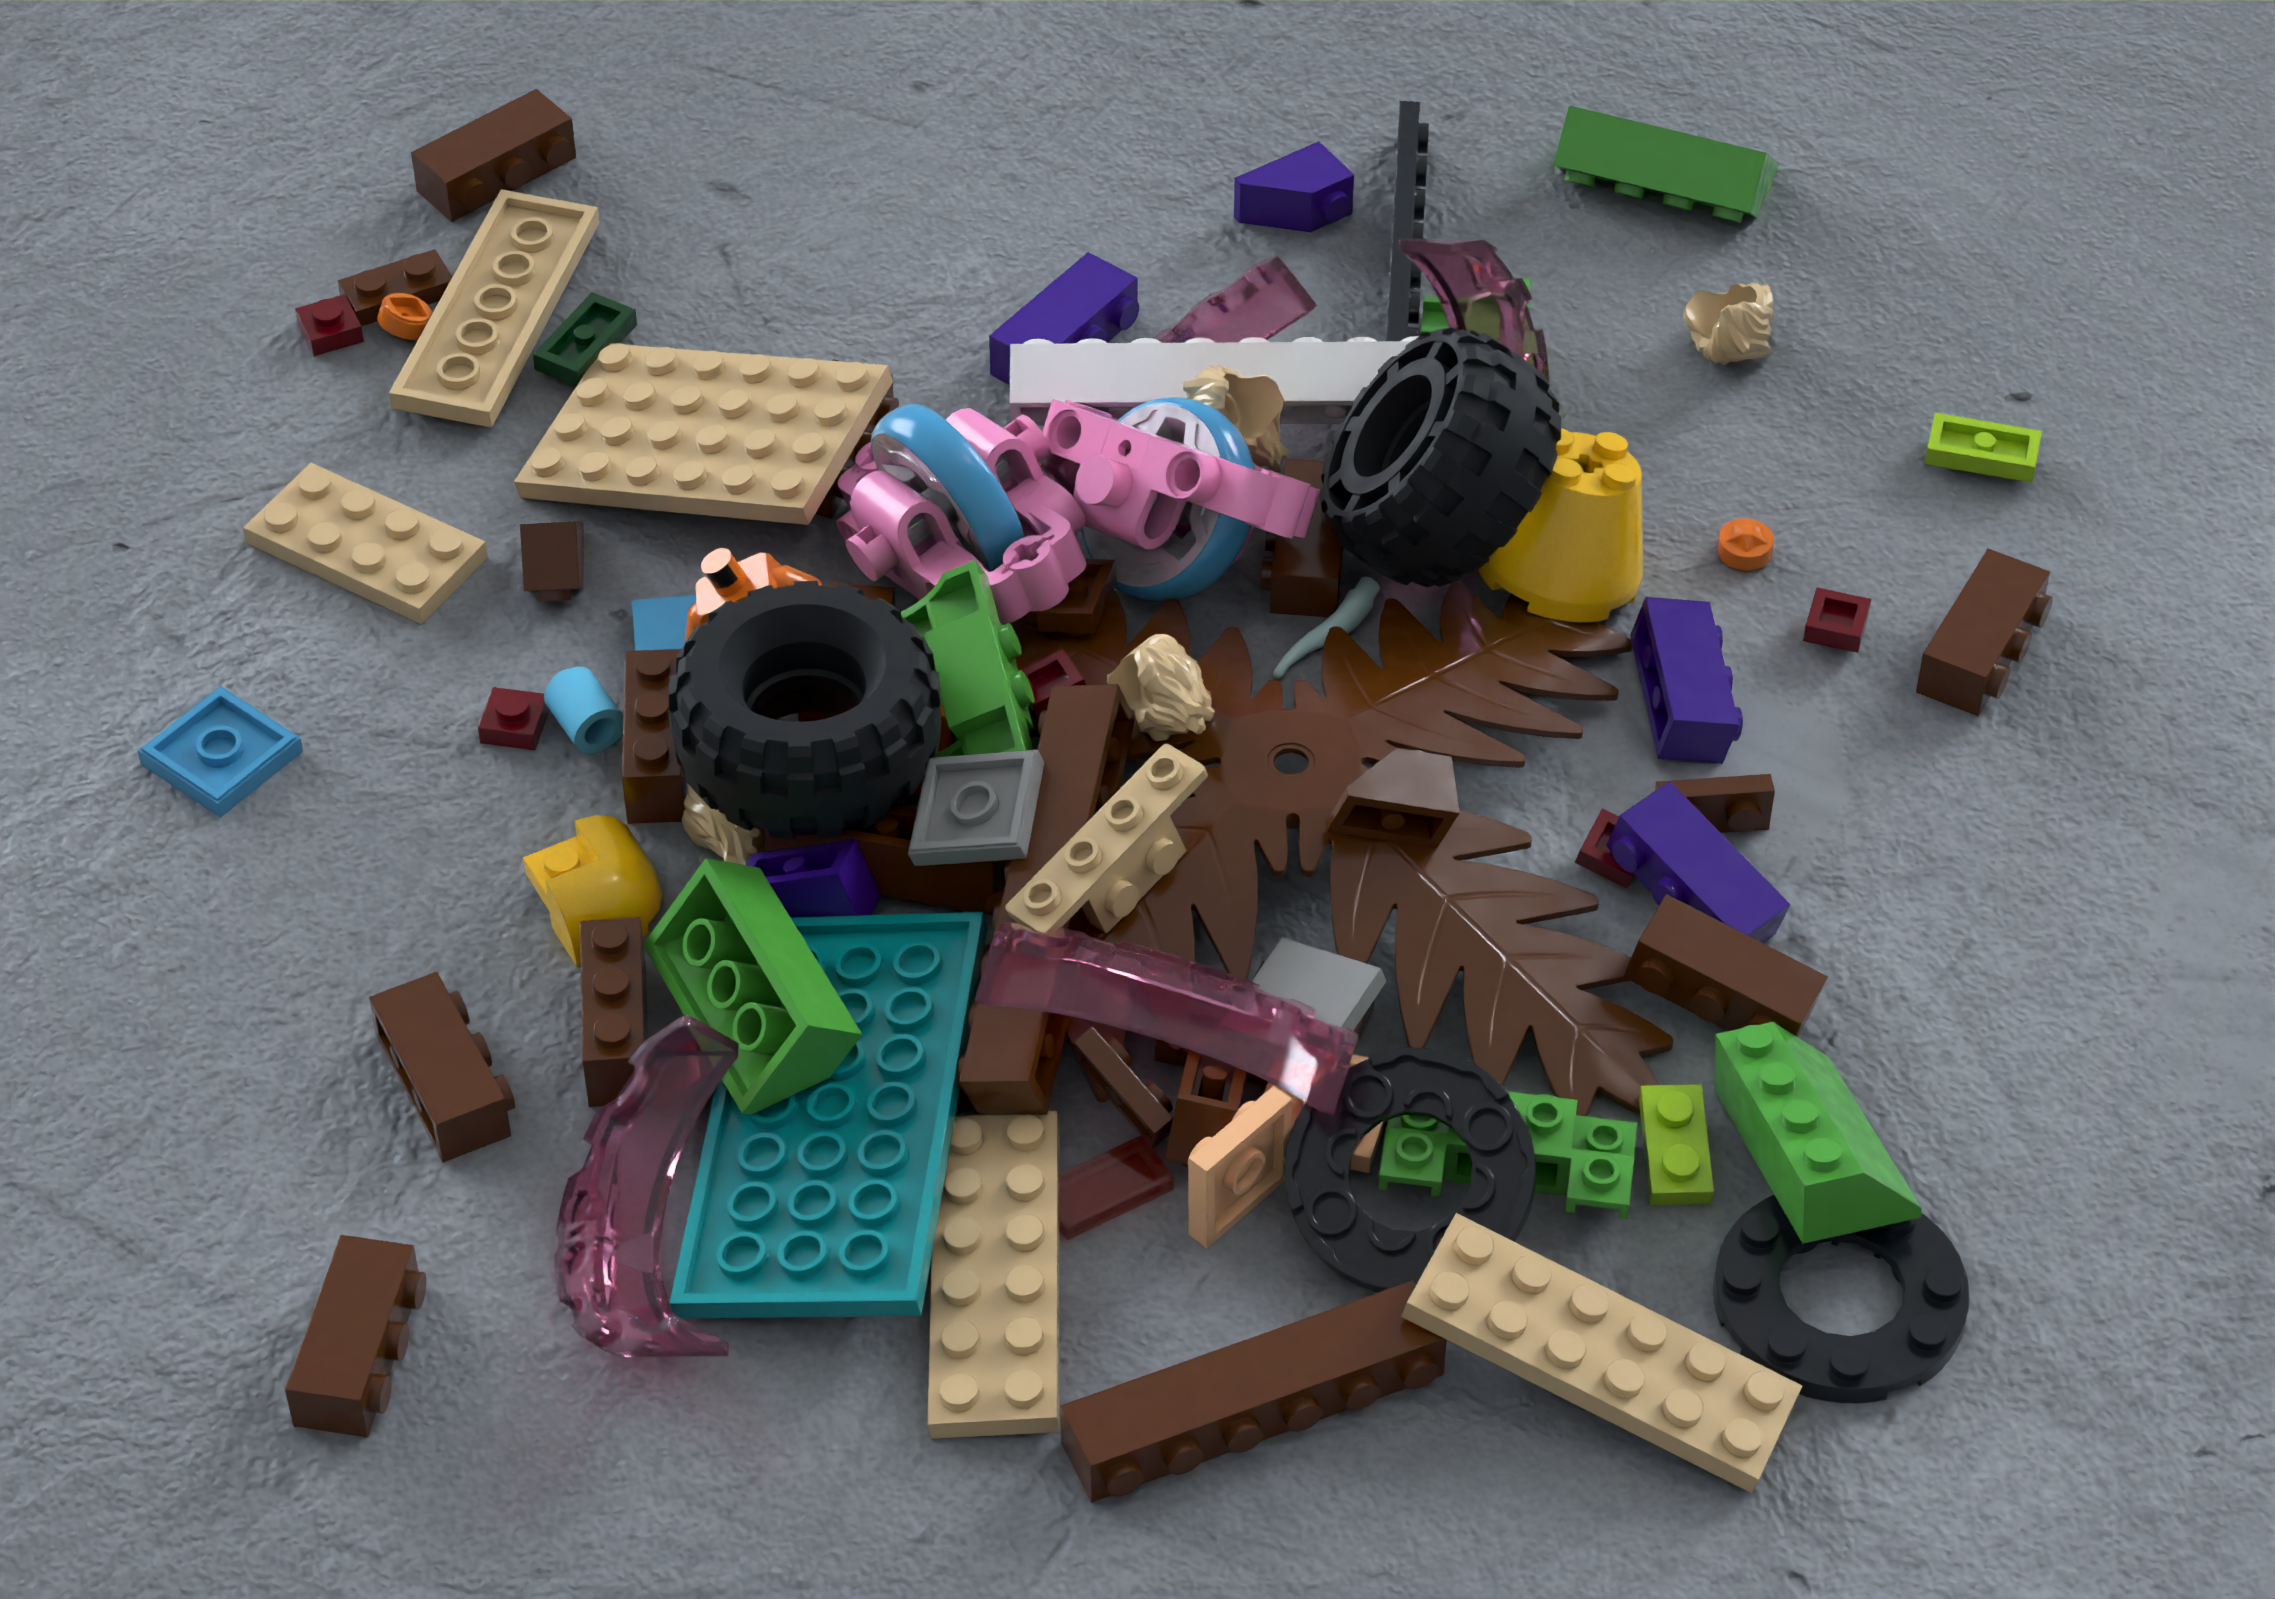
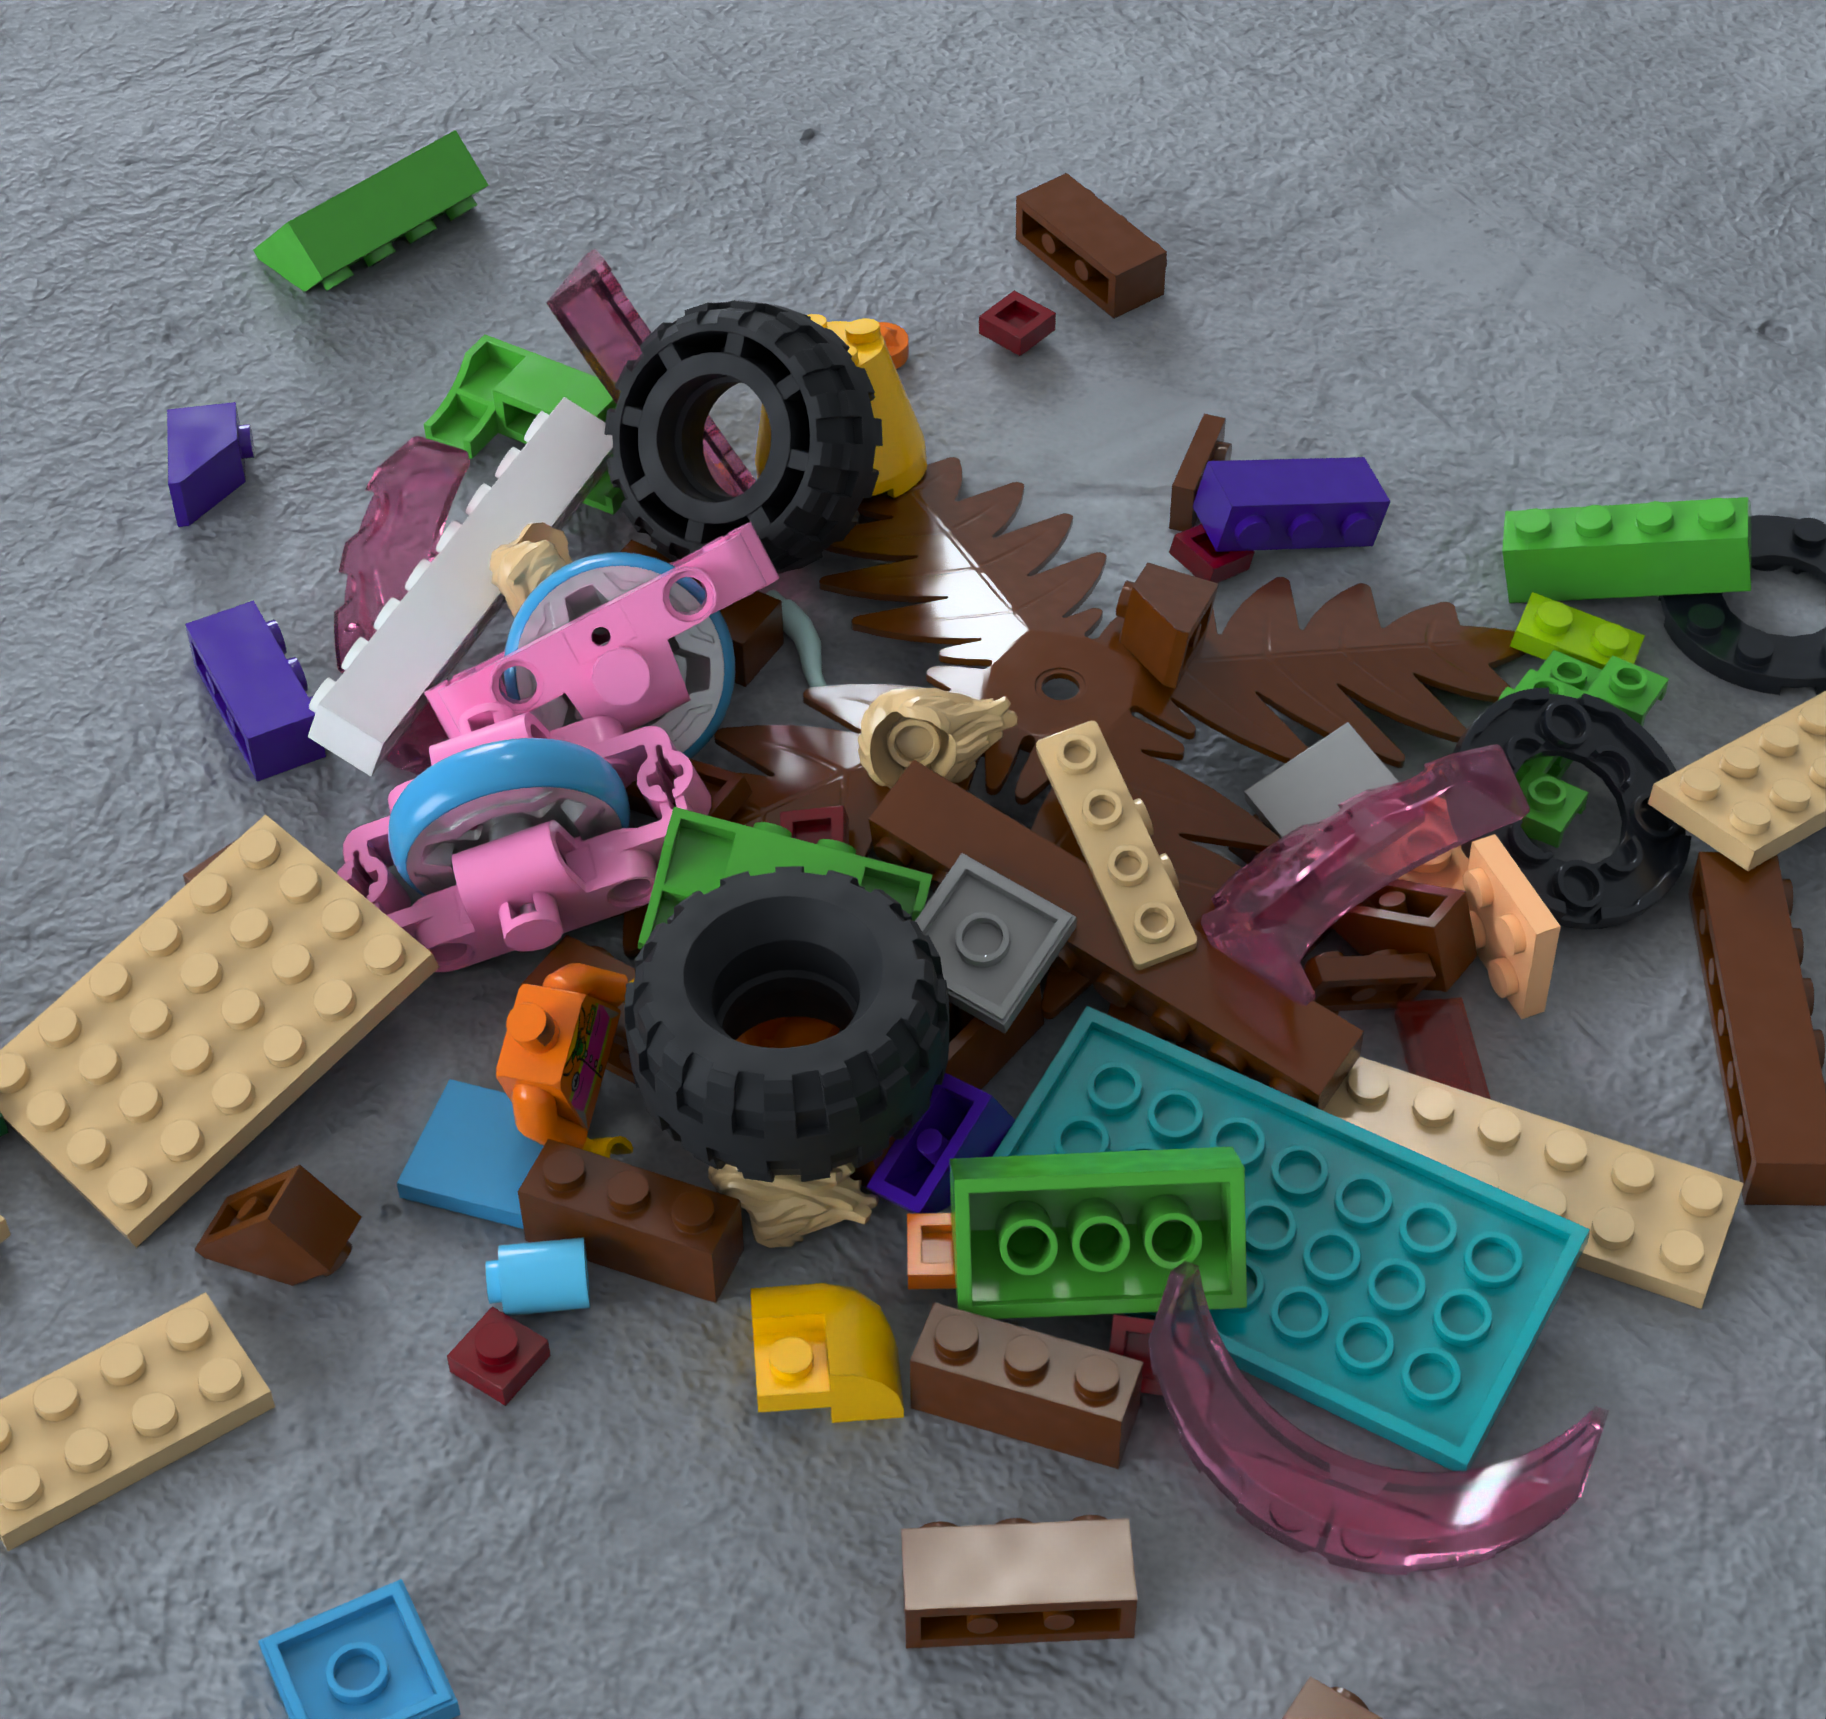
camera: 65 degrees left, 0 degrees up
(1408, 206) = (313, 404): black plate -> none
(1685, 680) = (1039, 433): dark purple brick -> none
(1721, 971) = (1417, 531): reddish brown brick -> none
(1731, 323) = (624, 236): tan hair -> none
(1983, 447) = (869, 168): lime plate -> none

